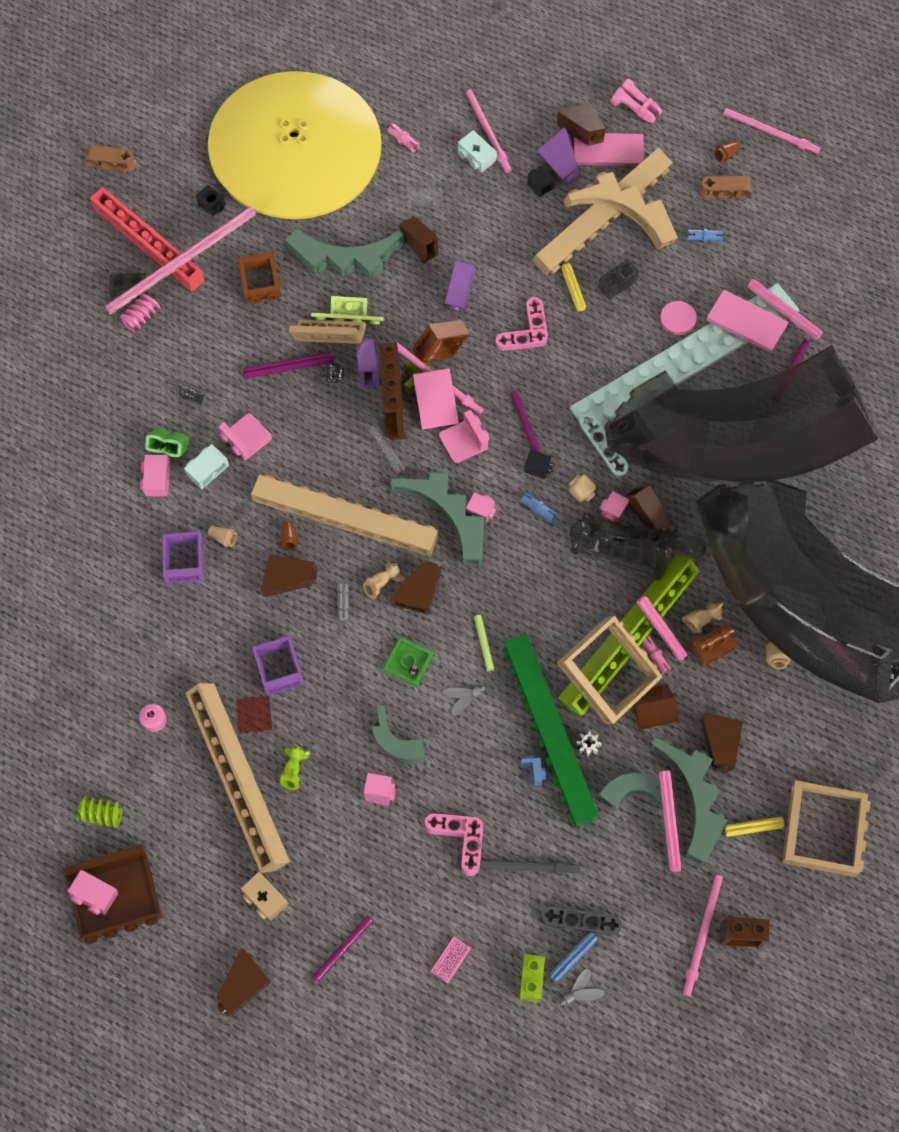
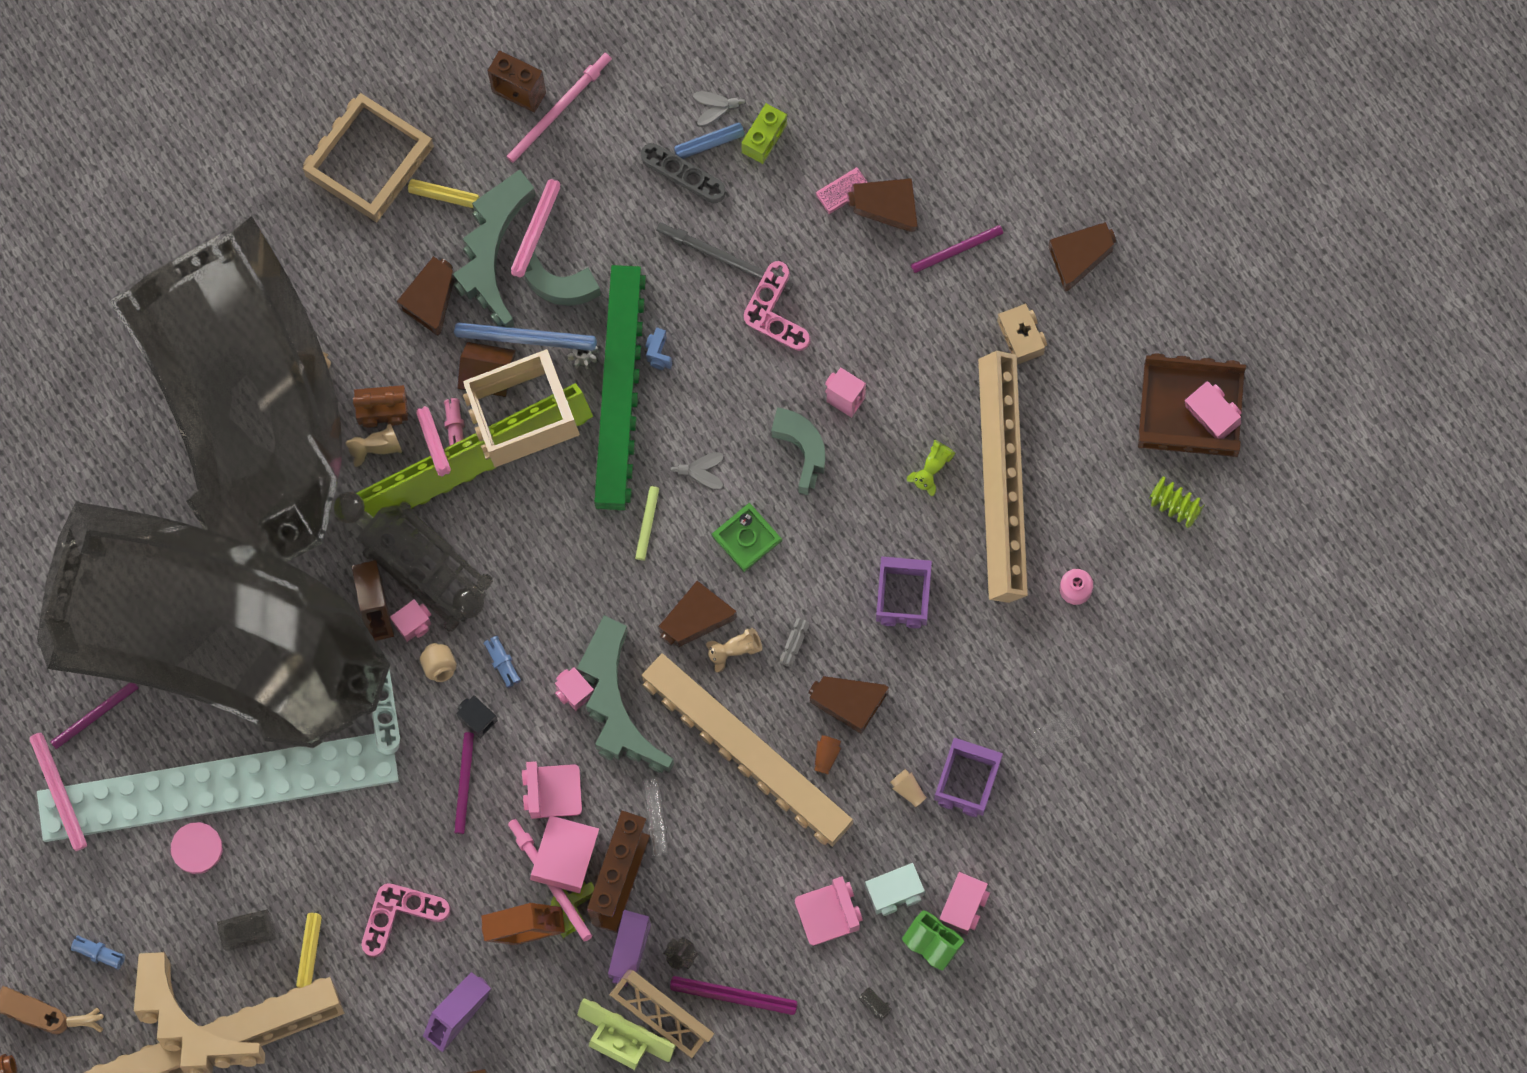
camera: 155 degrees left, 5 degrees up
(254, 715) = (954, 549): clear red piece -> none
(411, 959) = (885, 202): none -> reddish brown slope
(635, 735) = (525, 336): none -> medium blue axle
(689, 198) = (86, 1020): none -> tan bar
(747, 321) = (114, 796): bright pink tile -> none

